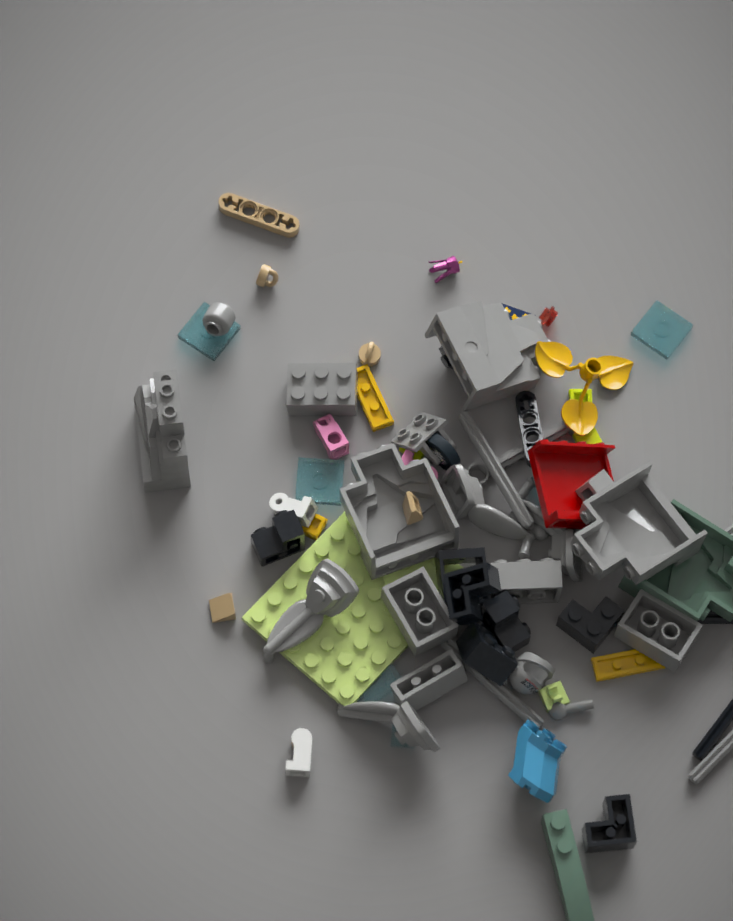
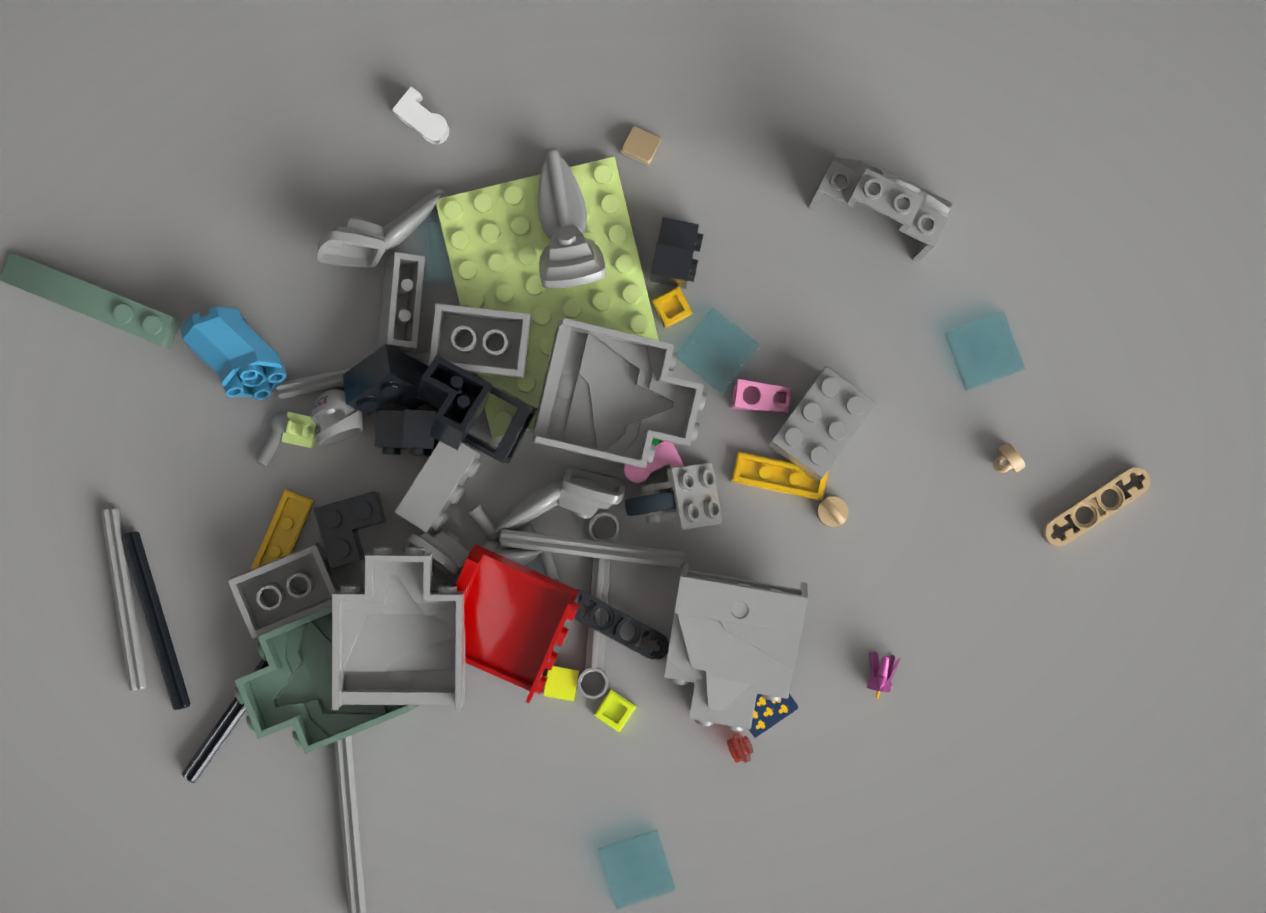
camera: 130 degrees right, 20 degrees up
(218, 319) = (987, 364): light grey head -> none
(304, 509) = (704, 289): white leg -> none
(412, 508) = (602, 417): tan slope -> none
(594, 485) = (487, 641): light grey brick -> none
(612, 372) = (622, 770): yellow plant -> none
(616, 831) = (106, 381): black brick -> none

